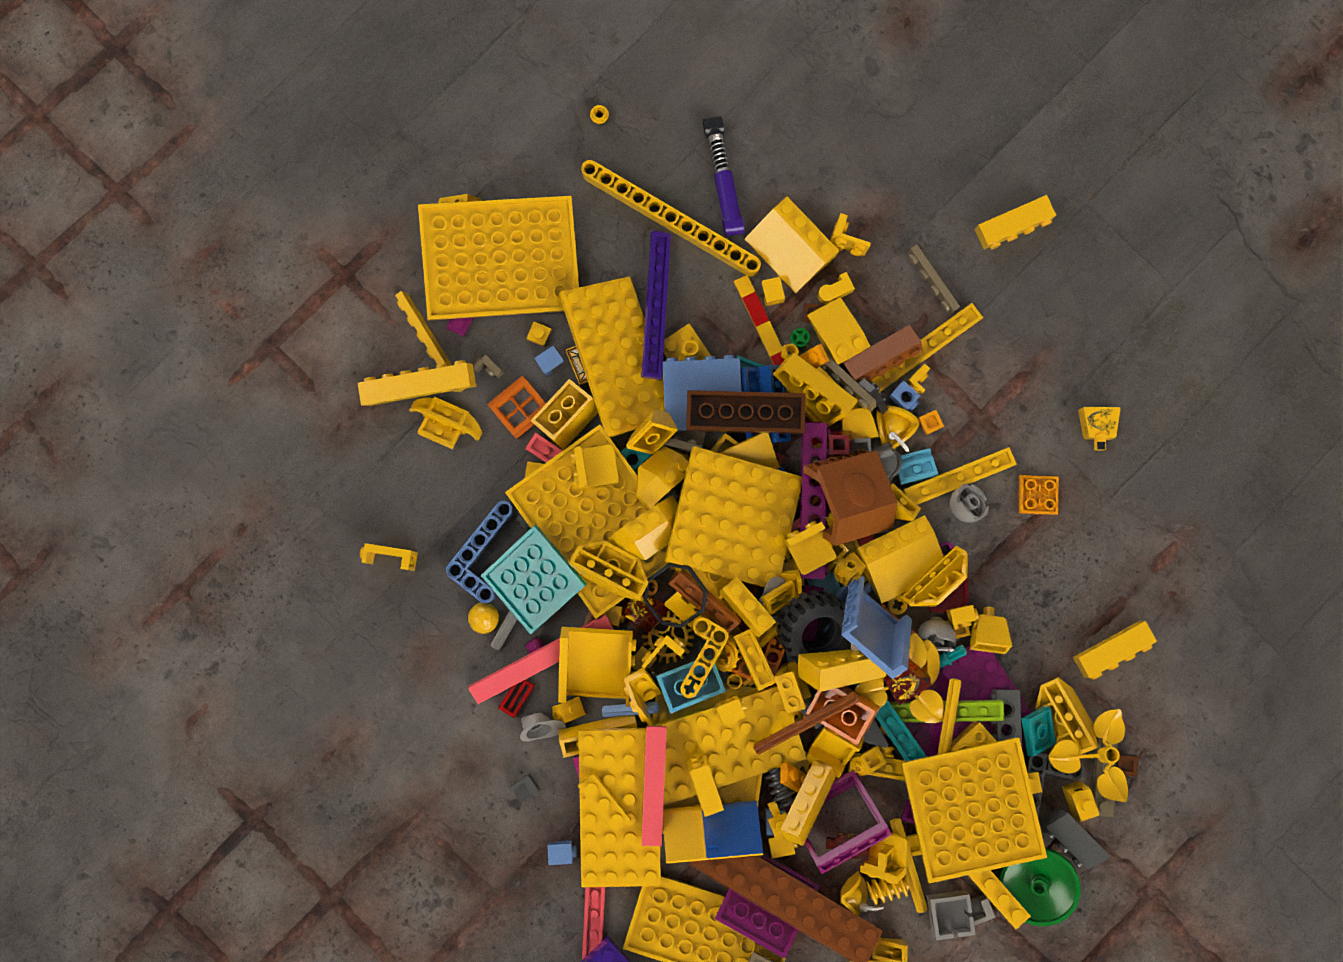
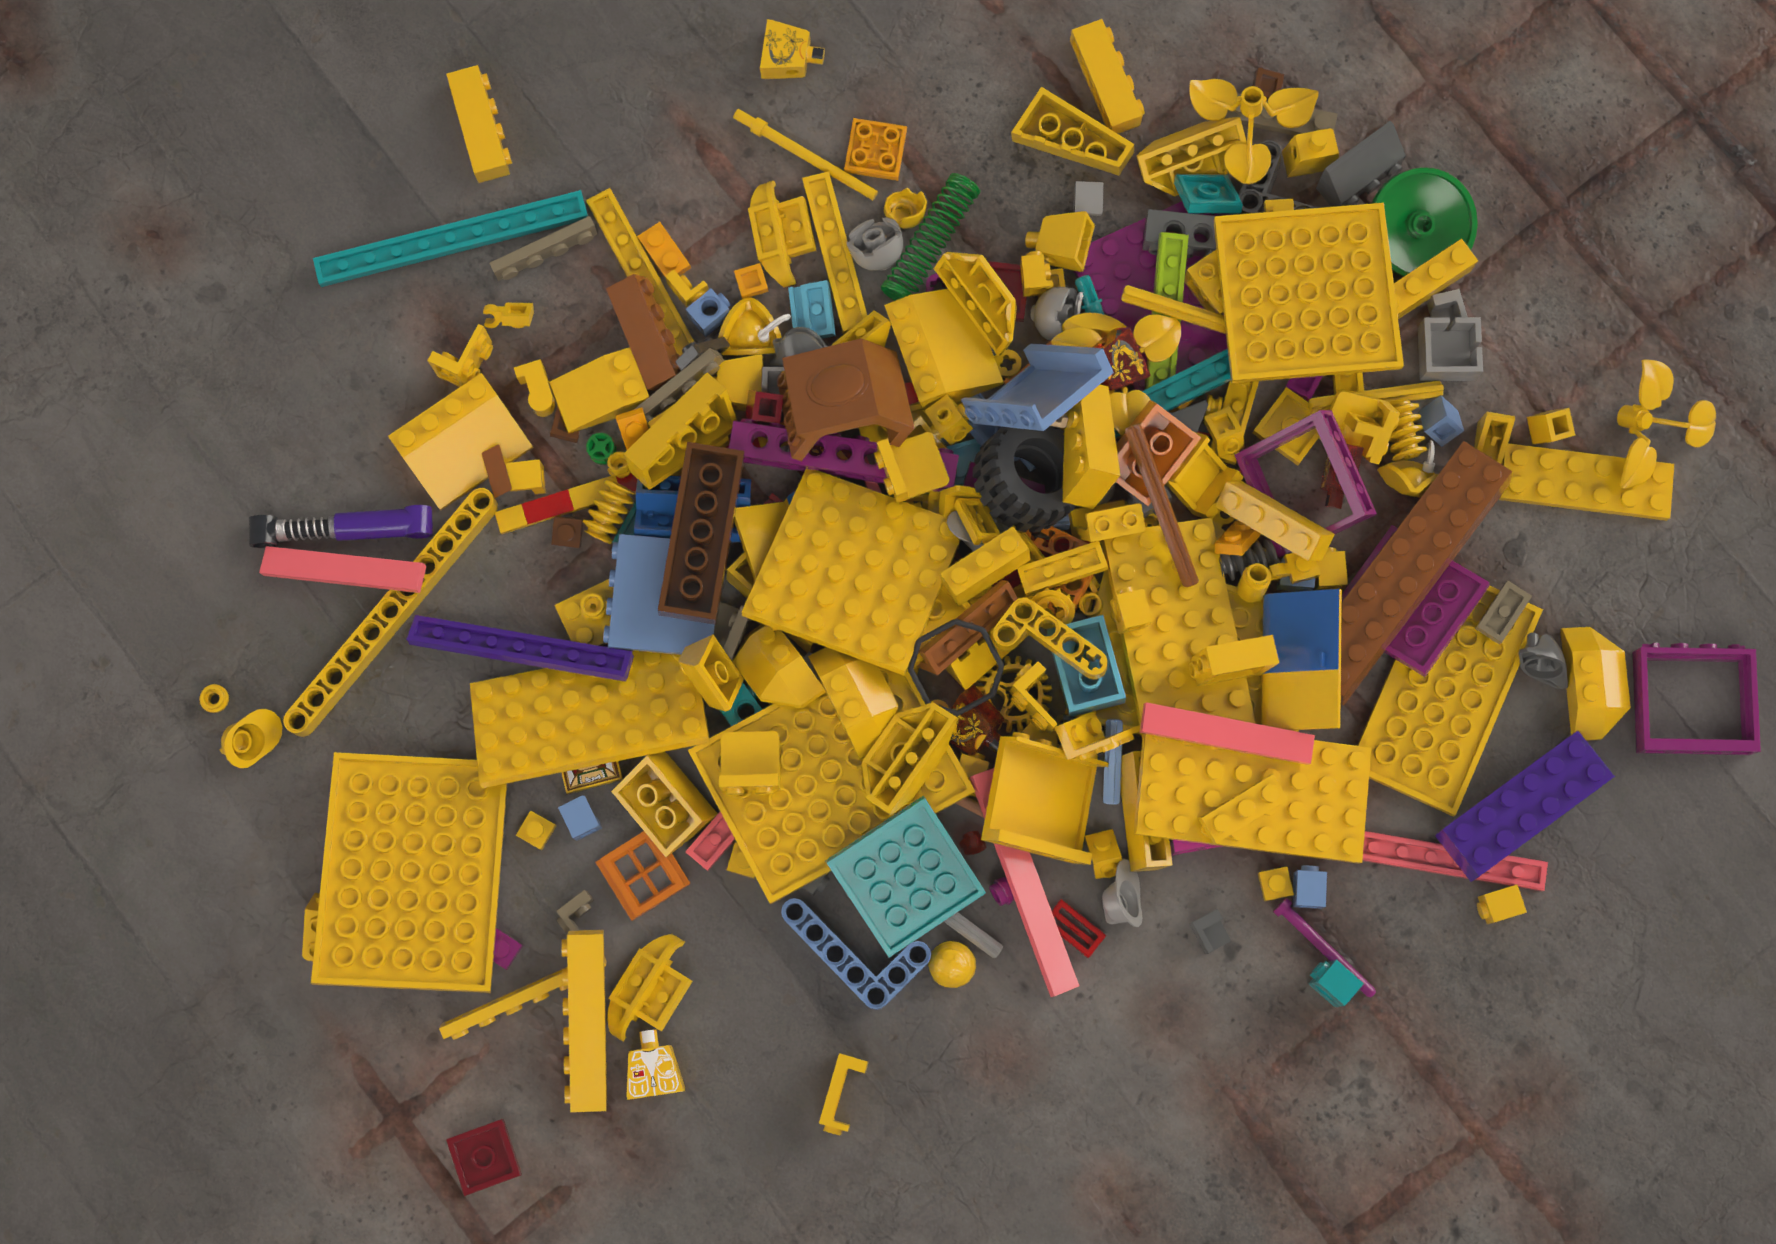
camera: 75 degrees left, 5 degrees down
(325, 332) = (484, 1157): none -> dark red plate
(392, 432) = (652, 1069): none -> yellow torso
(498, 876) = (1334, 982): none -> teal brick
(545, 836) = (1326, 949): none -> magenta bar
(562, 829) = (1275, 884): none -> yellow plate
(564, 620) = (972, 843): none -> clear red plate
(575, 142) = (251, 738): none -> yellow piece
(694, 182) = (343, 569): none -> coral tile
(740, 324) = (567, 532): none -> reddish brown plate
(756, 350) = (608, 511): none -> yellow piece
(763, 793) = (1254, 582): none -> yellow brick
(773, 271) = (496, 471): none -> dark orange sticker
(884, 266) = (512, 314): none -> yellow plate
(886, 802) = (1285, 412): none -> yellow plate
(898, 913) = (1441, 421): none -> medium blue panel
(931, 217) = (450, 238): none -> teal plate
(944, 360) = (663, 250): none -> light orange plate
(969, 436) = (780, 231): none -> yellow plate
(997, 521) = (906, 208): none -> yellow hair
(1018, 559) = (953, 180): none -> green piece
(1023, 647) = (1088, 198): none -> light grey panel
(1041, 413) = (761, 128): none -> yellow bar
(1069, 627) = (1071, 134): none -> yellow wedge

